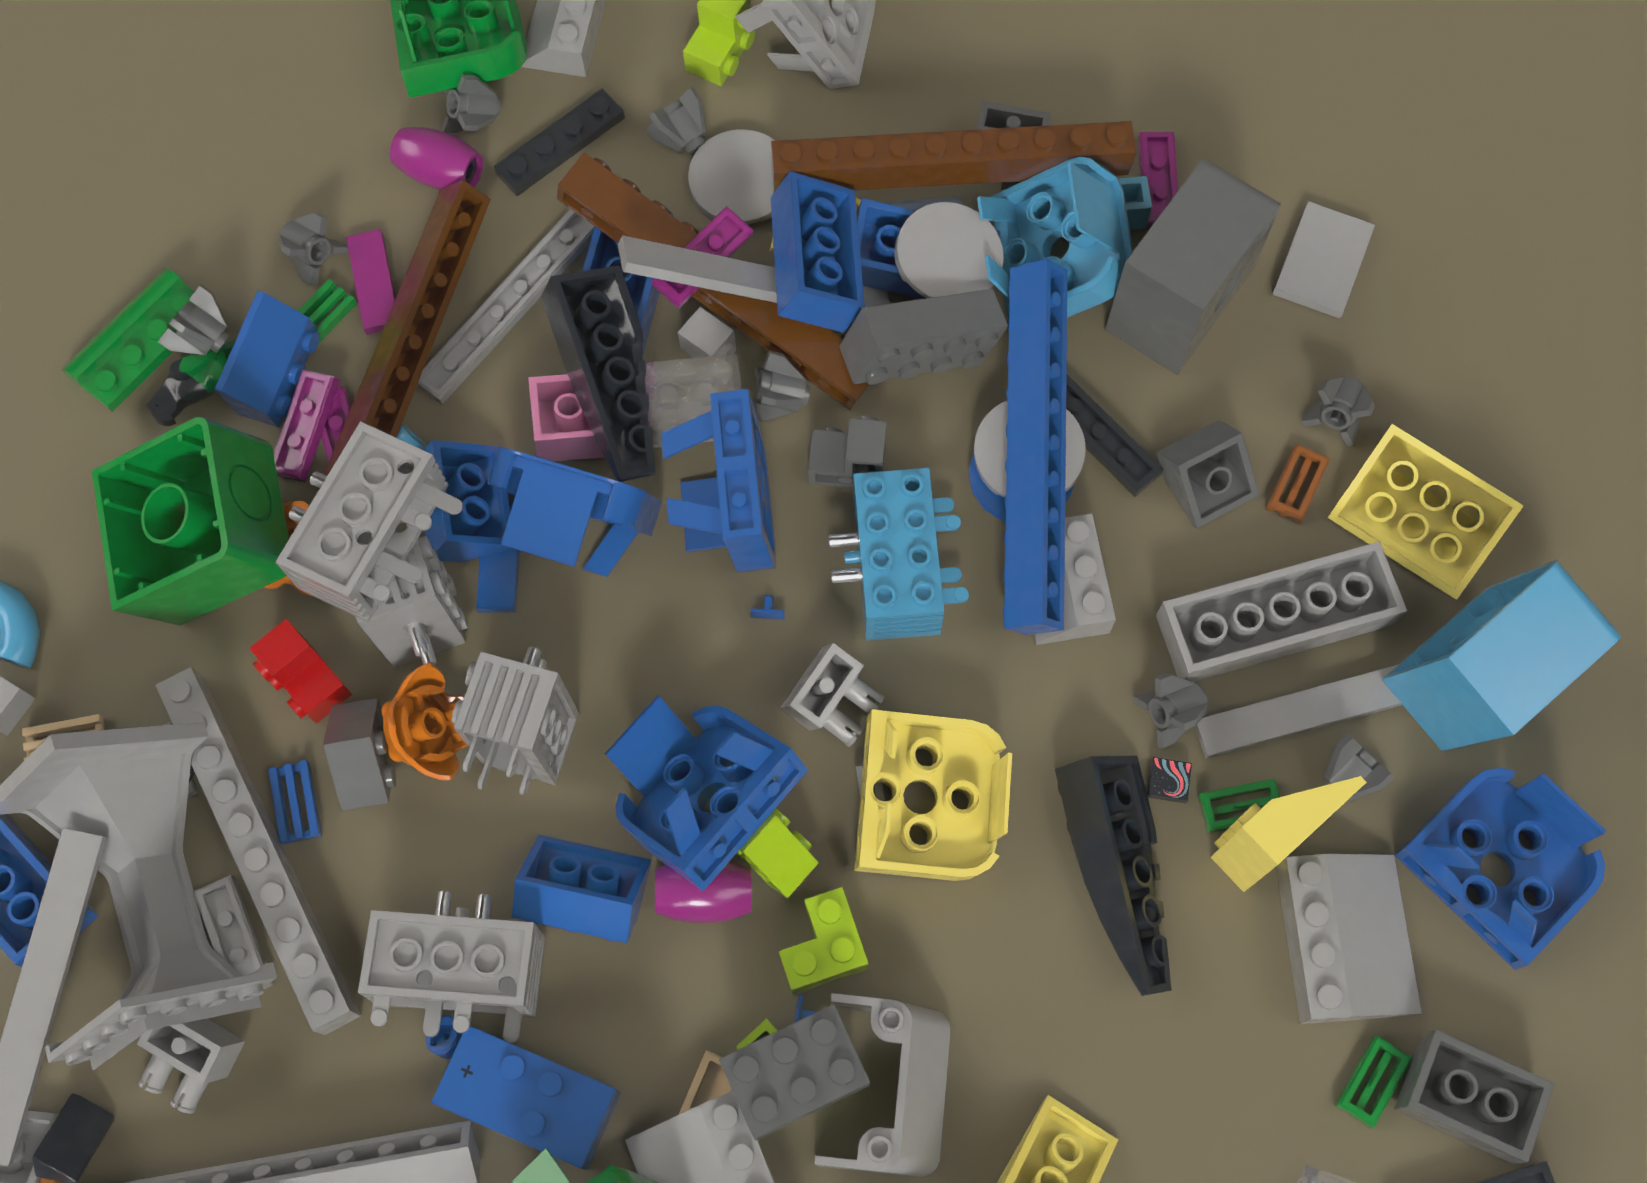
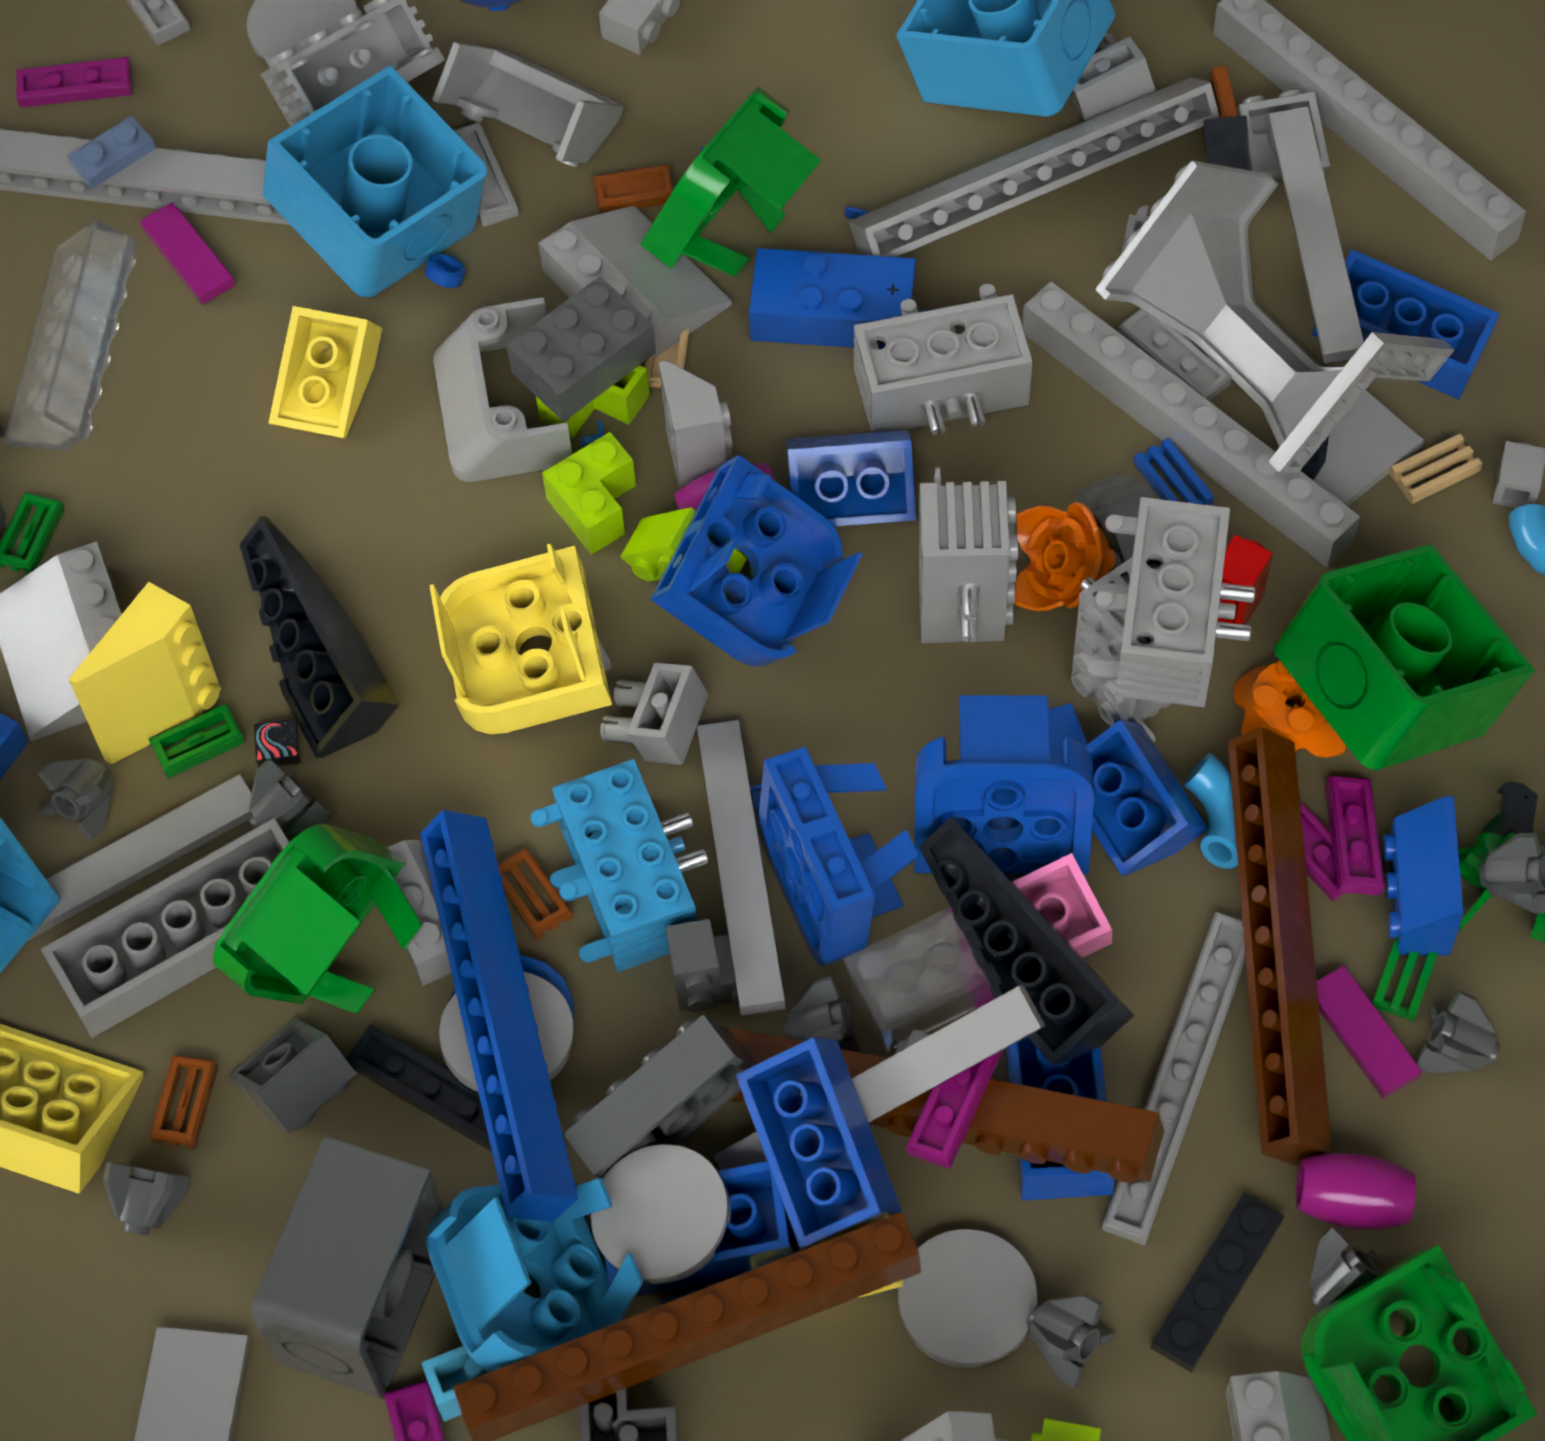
camera: 165 degrees right, 10 degrees down
(713, 951) = (694, 423): none -> light grey slope
(802, 533) = (740, 869): none -> light grey tile
(989, 606) = (549, 920): none -> dark orange tile
(1167, 550) = (307, 915): none -> green piece

